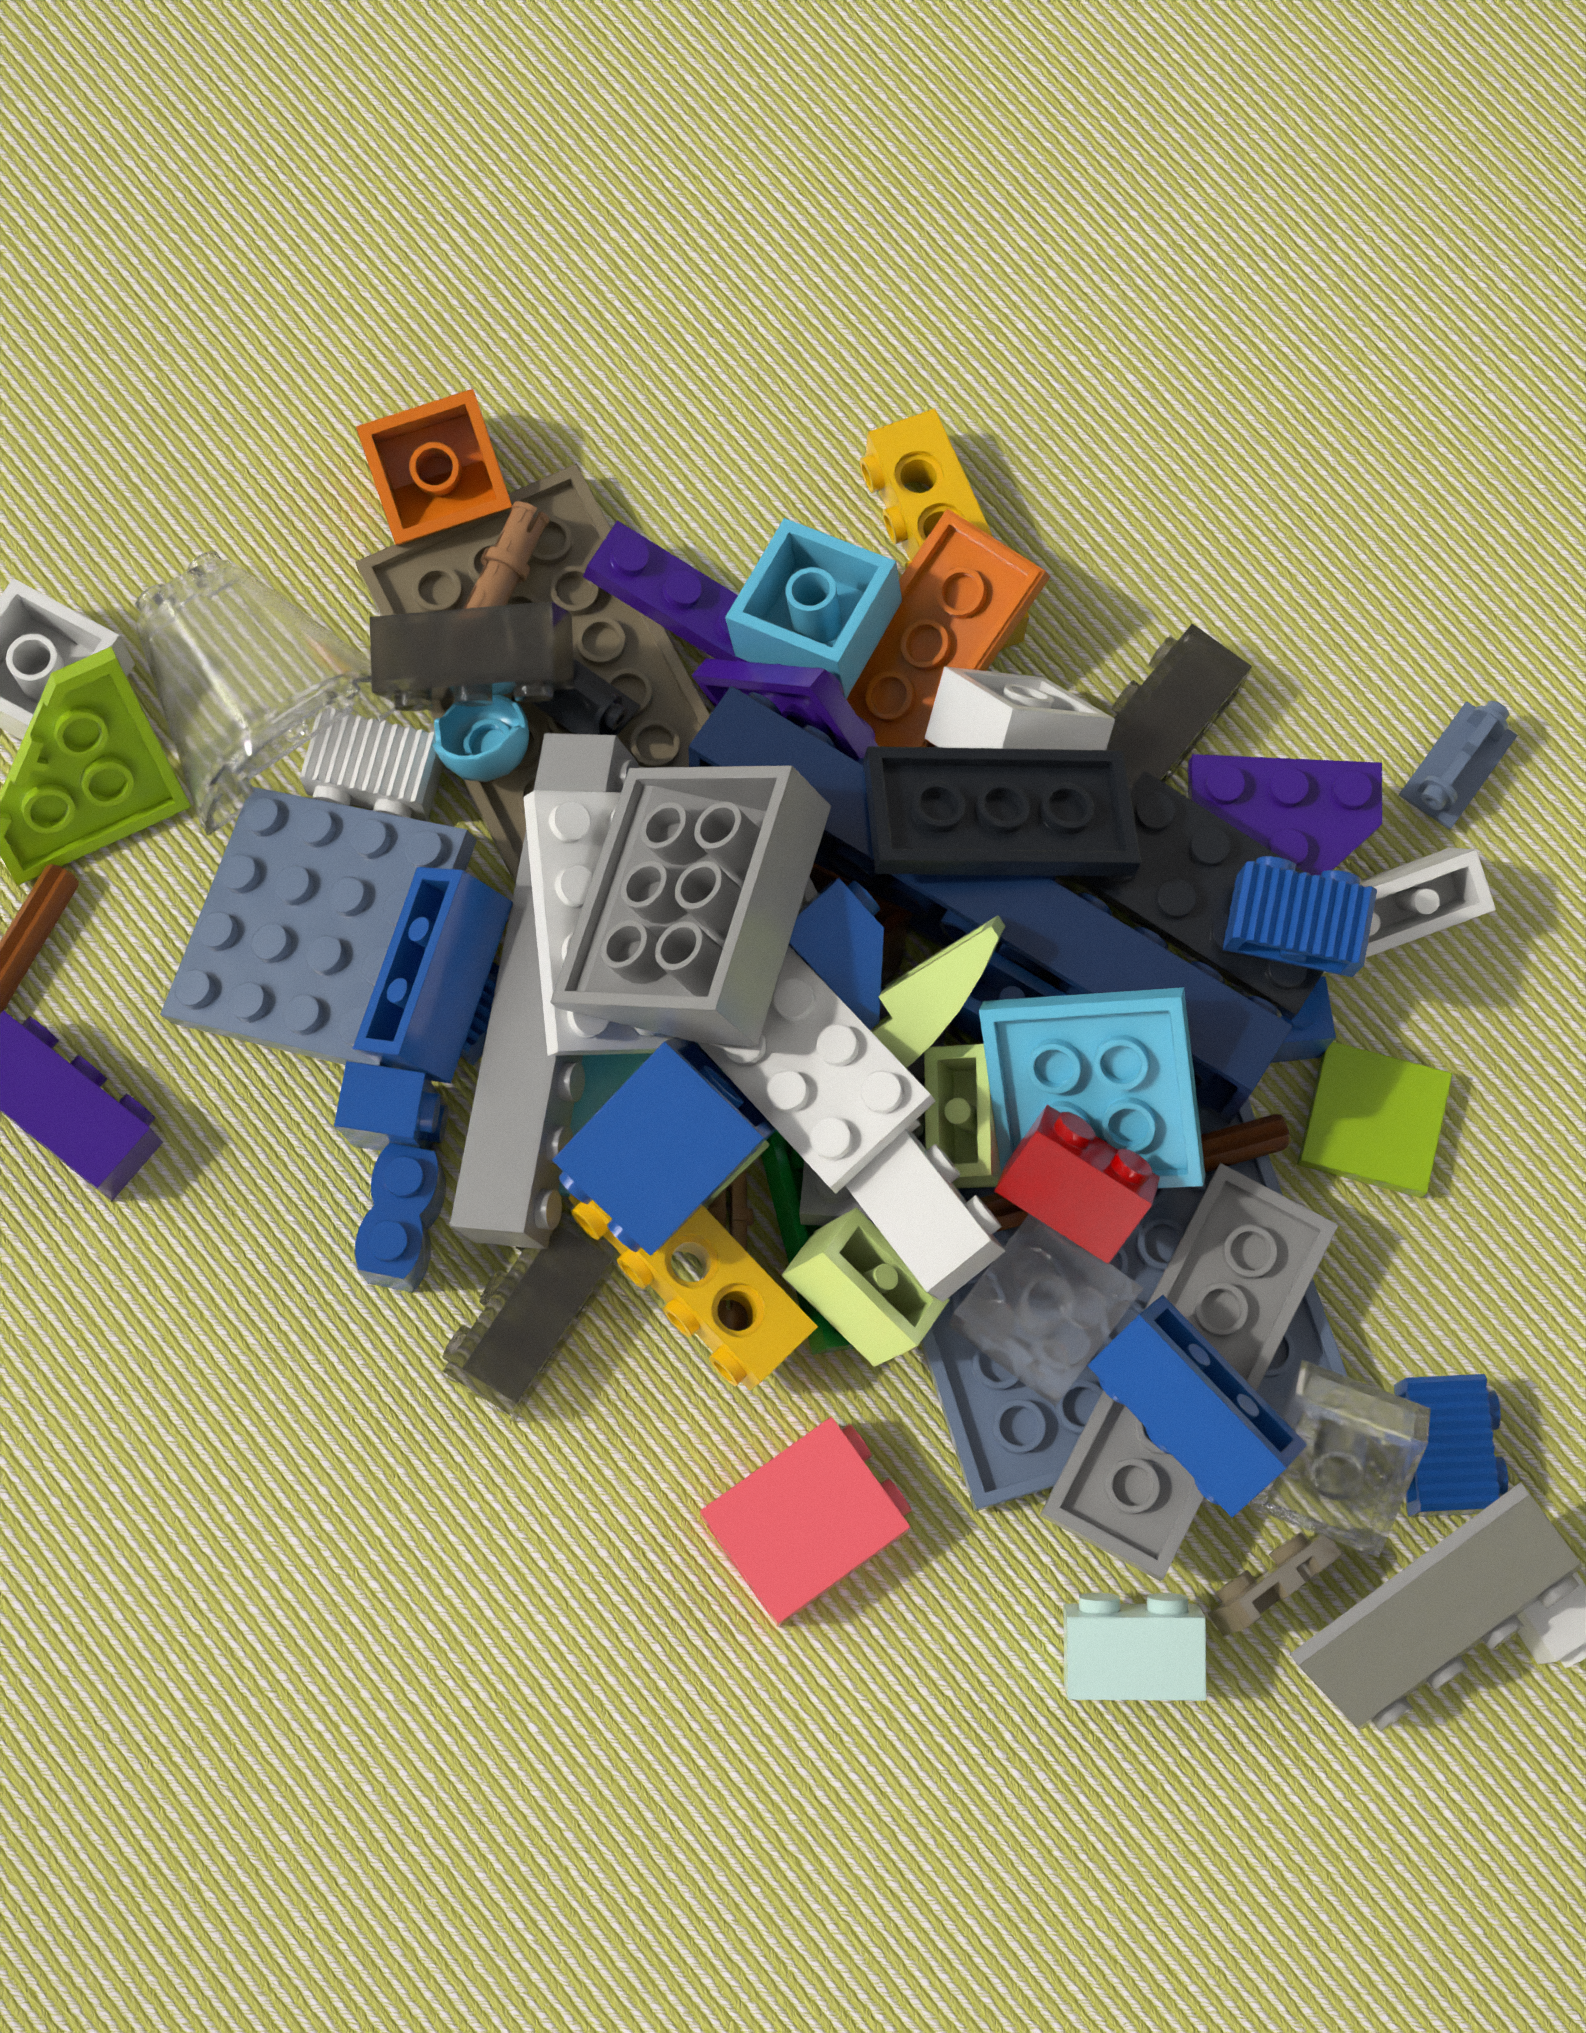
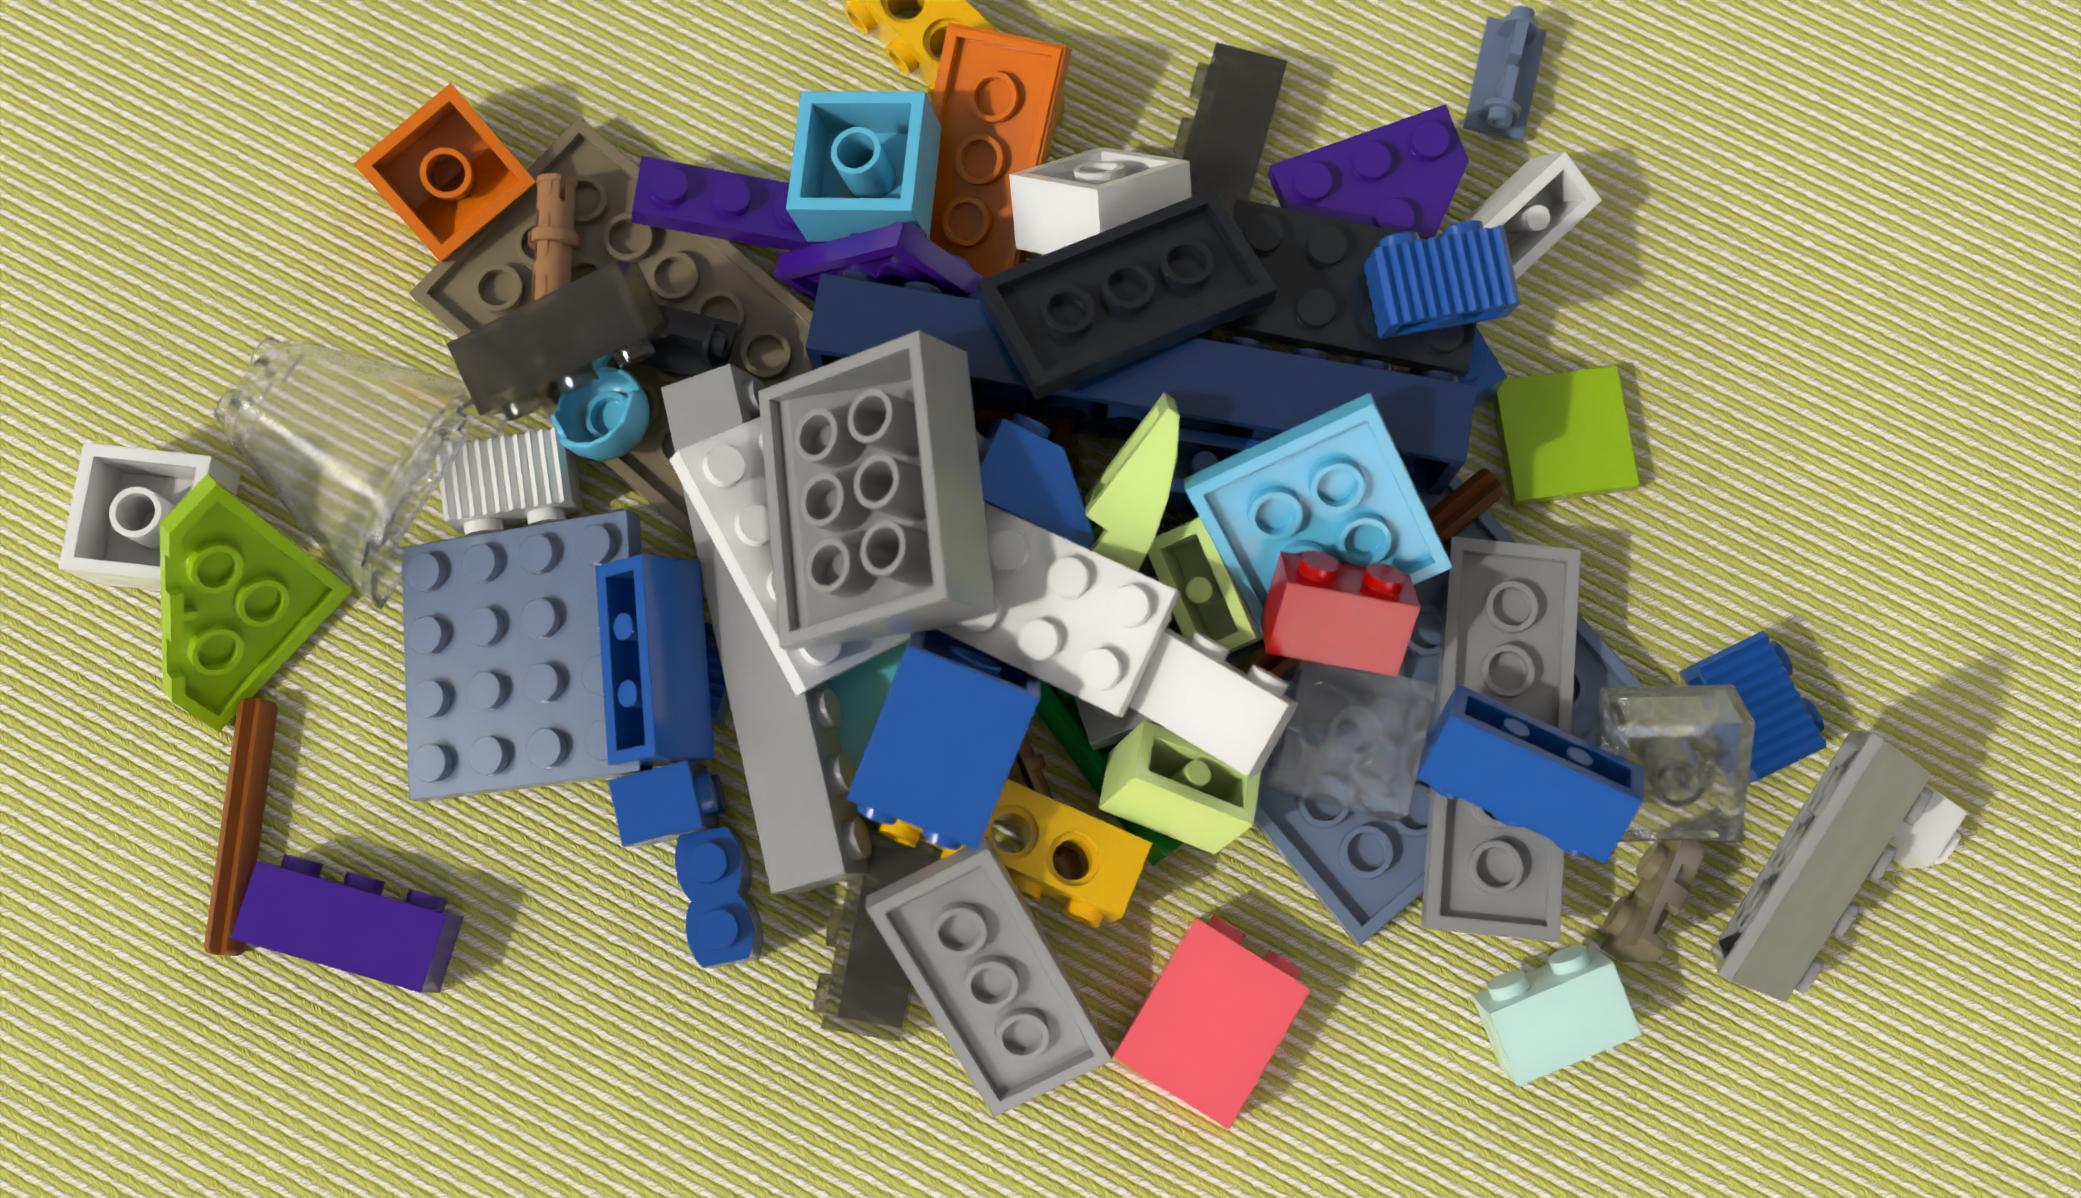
camera: 20 degrees left, 5 degrees up
(616, 1388) = (989, 977): none -> light grey plate

